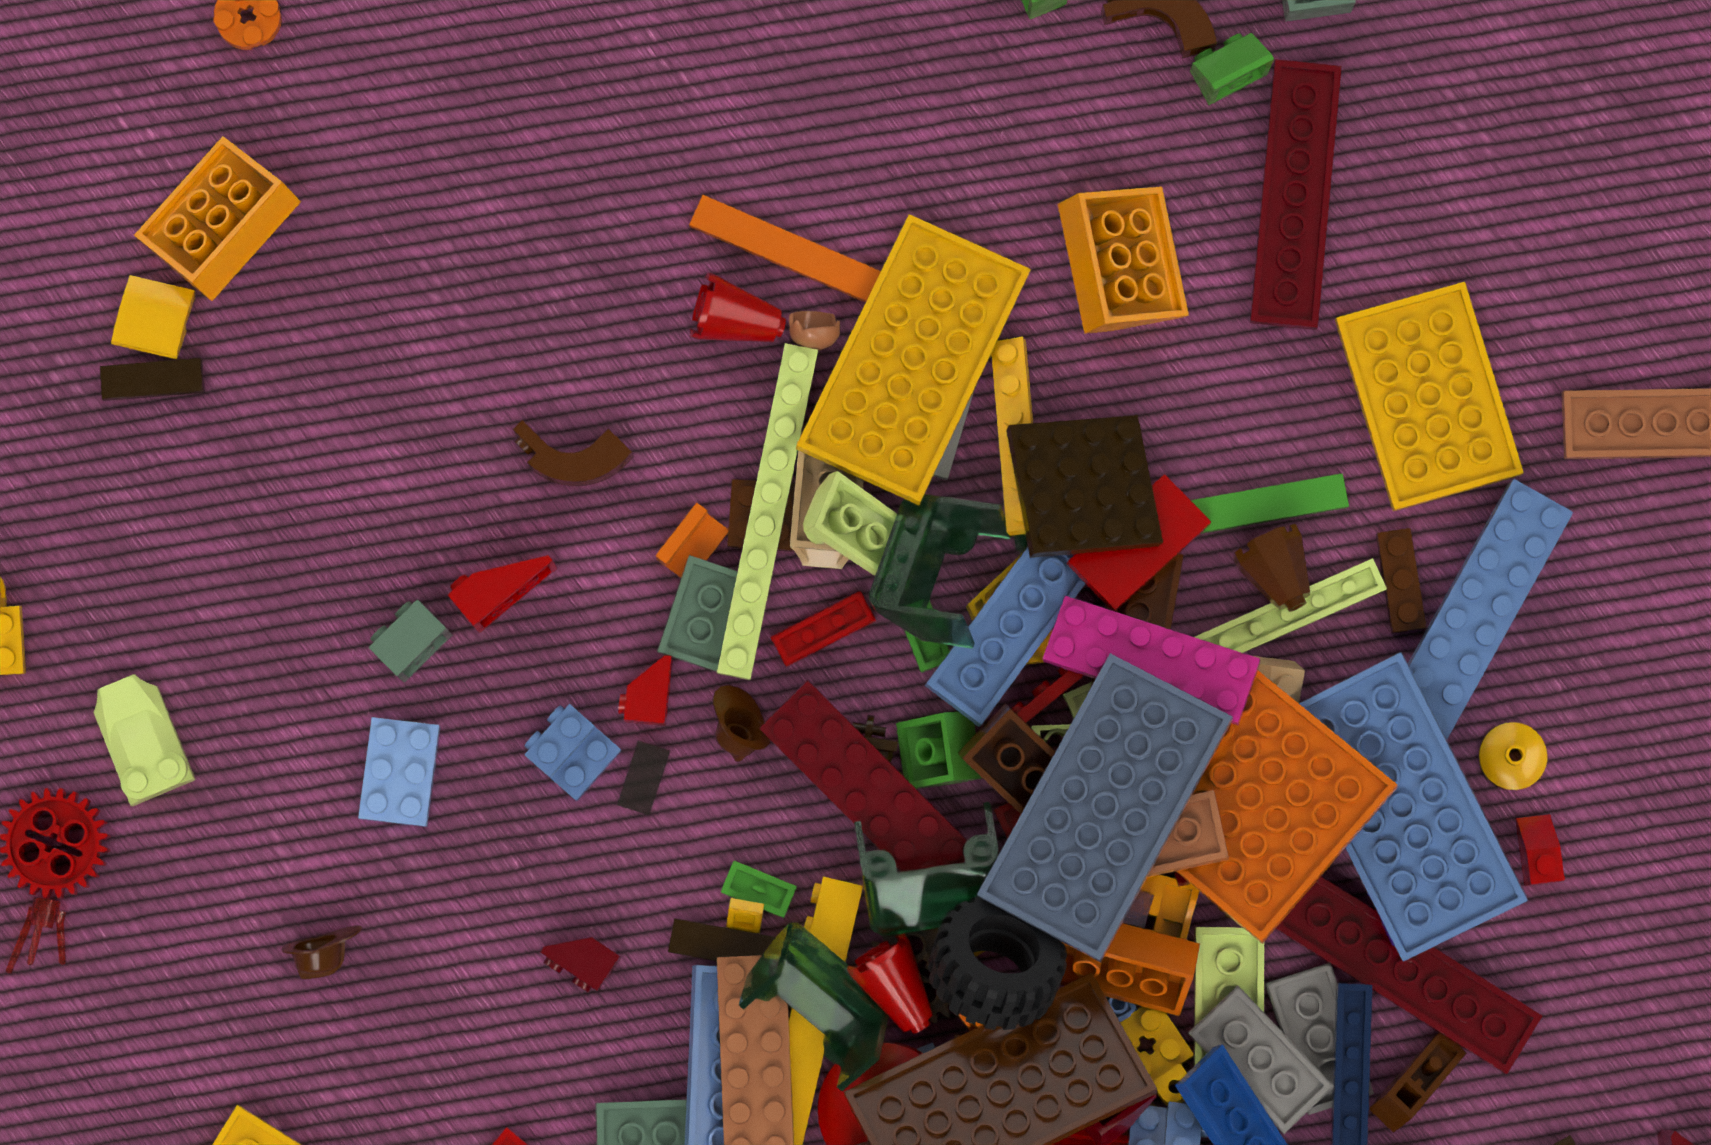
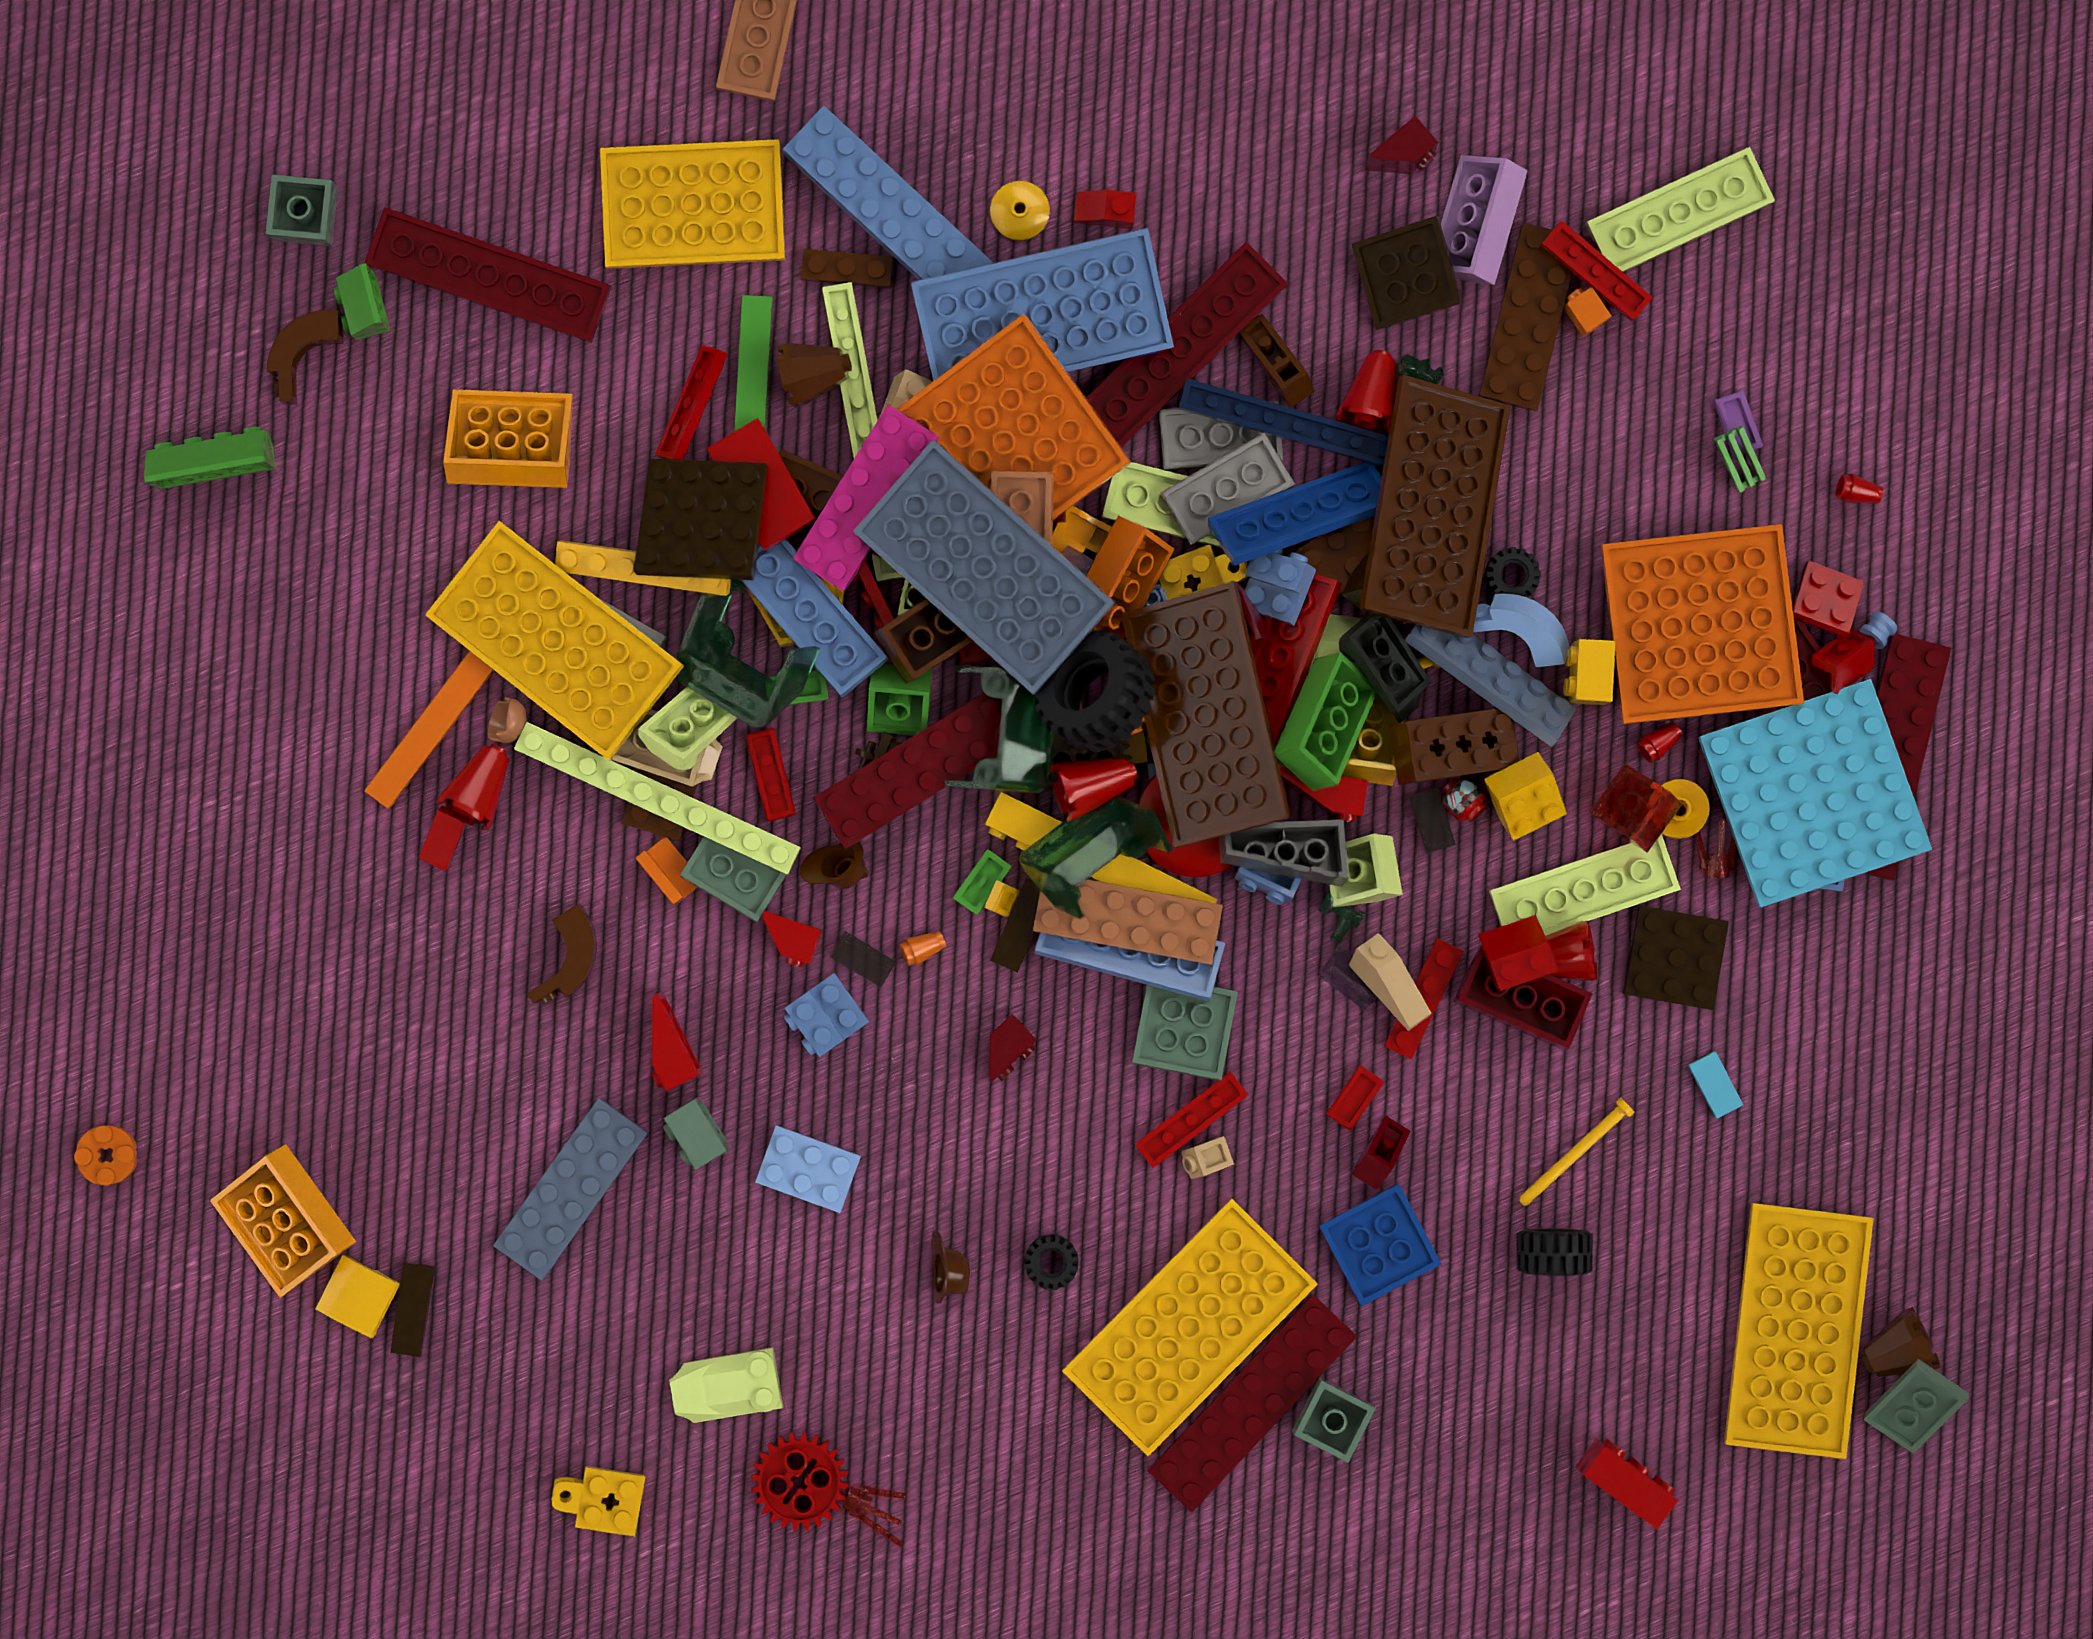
camera: 75 degrees left, 5 degrees up
(320, 518) = (570, 1189): none -> sand blue plate
(334, 1065) = (1058, 1279): none -> black tyre
(670, 291) = (443, 838): none -> red tile
(671, 839) = (921, 947): none -> orange cone
(946, 1026) = (1137, 748): none -> yellow tile
(1209, 446) = (691, 403): none -> red plate

